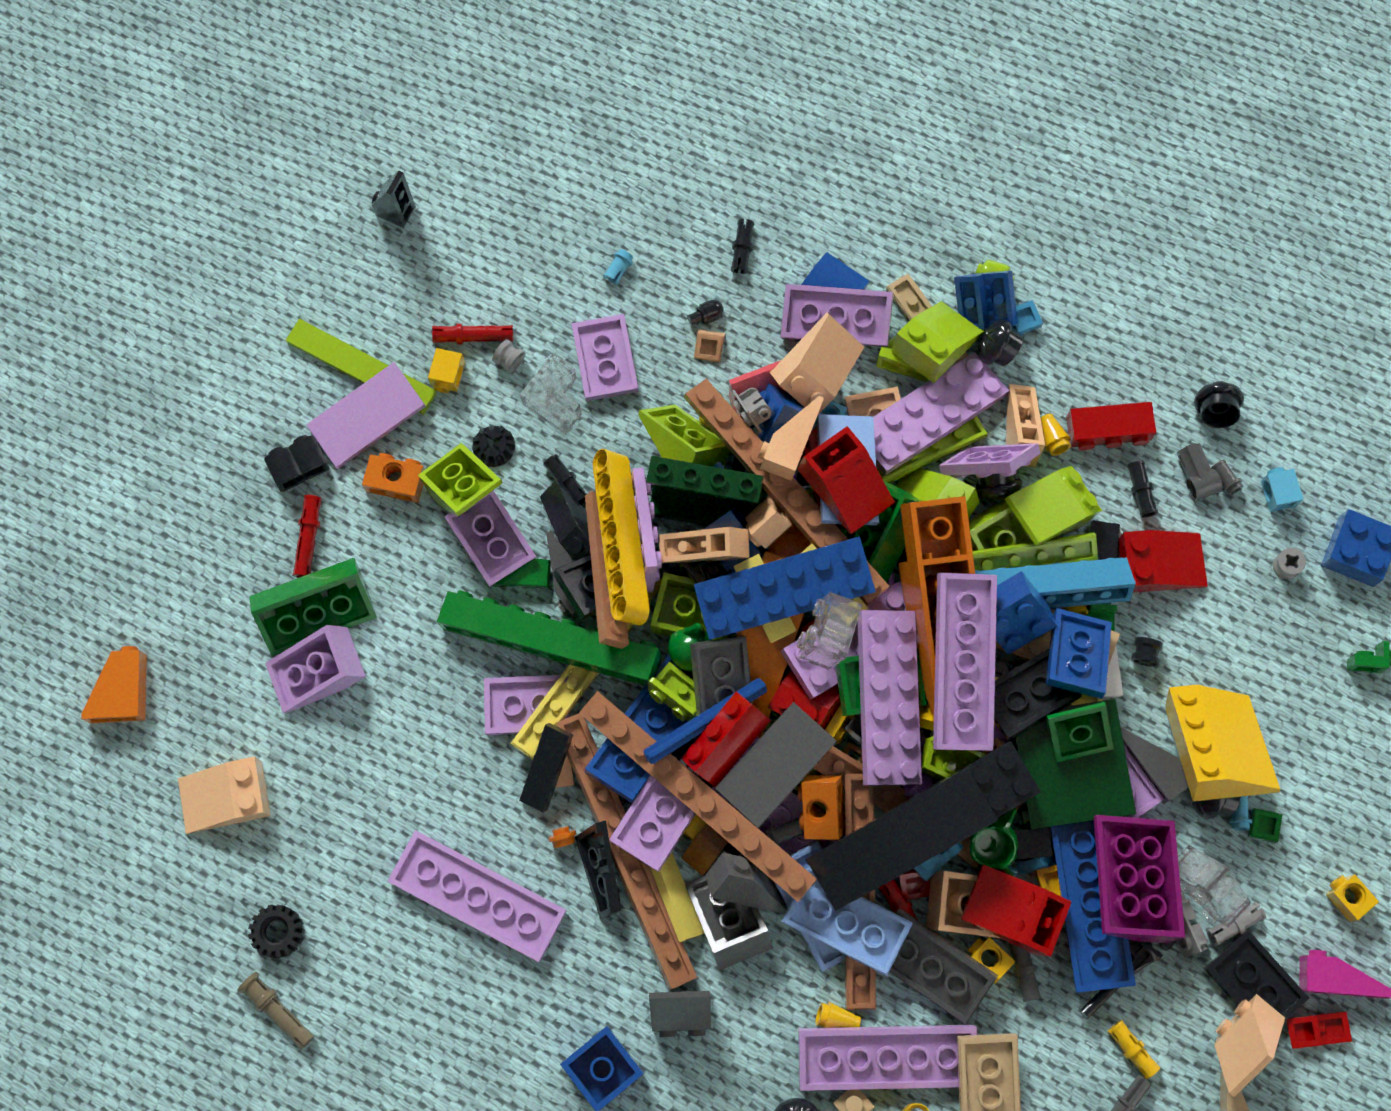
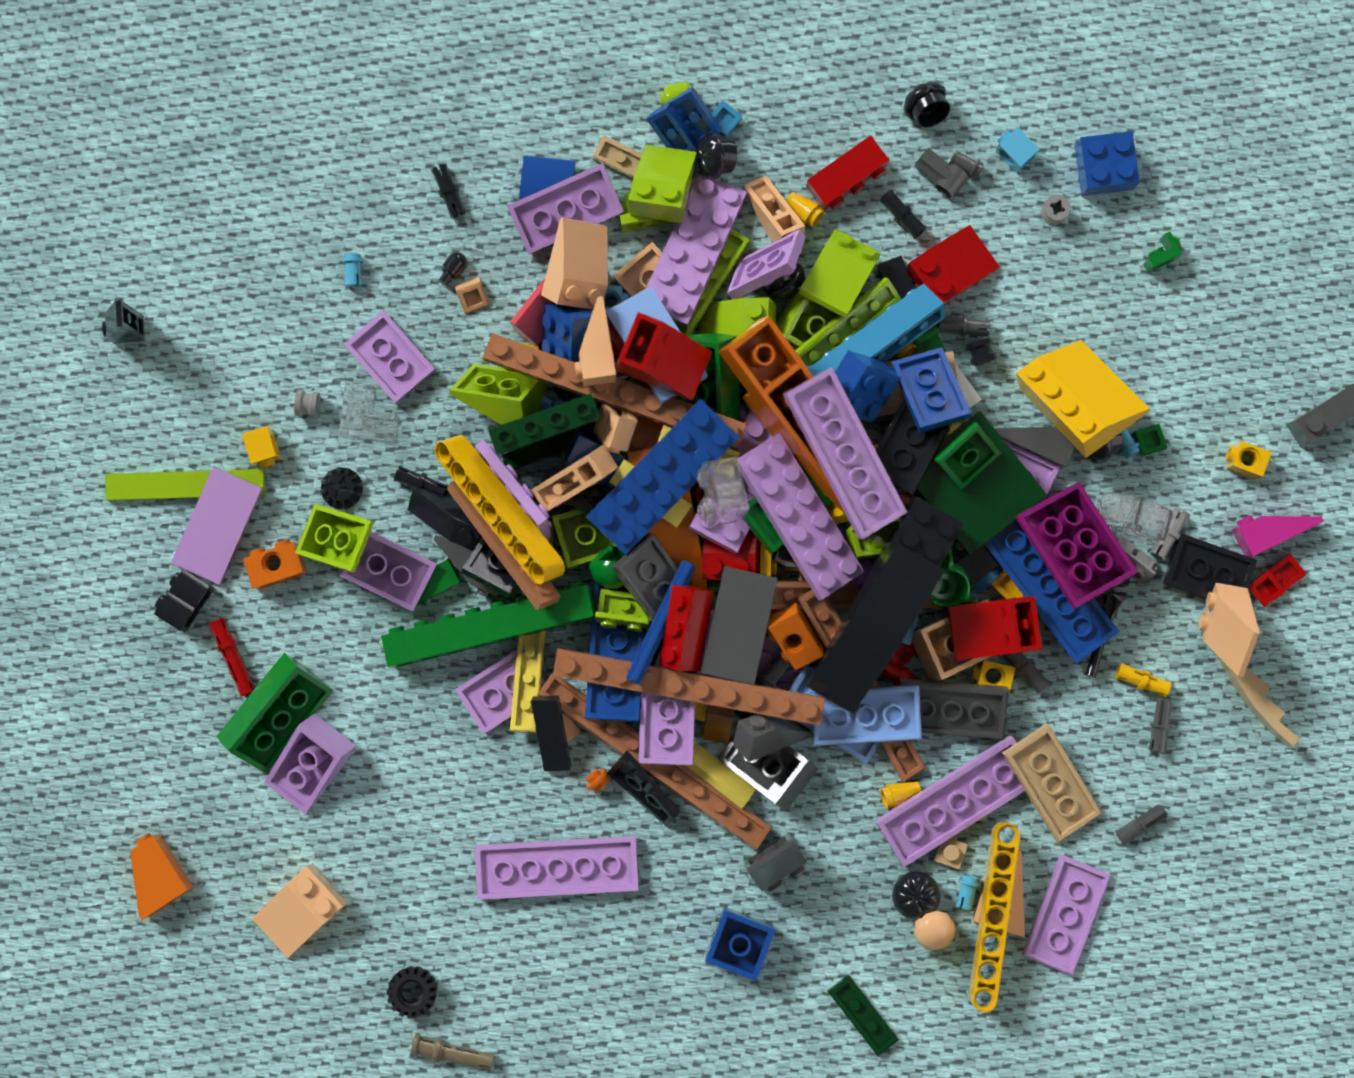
camera: 30 degrees left, 10 degrees up
(472, 333) = (254, 407): red pin -> none
(752, 407) = (544, 335): light grey hinge -> none
(1143, 620) = (964, 326): none -> dark grey axle

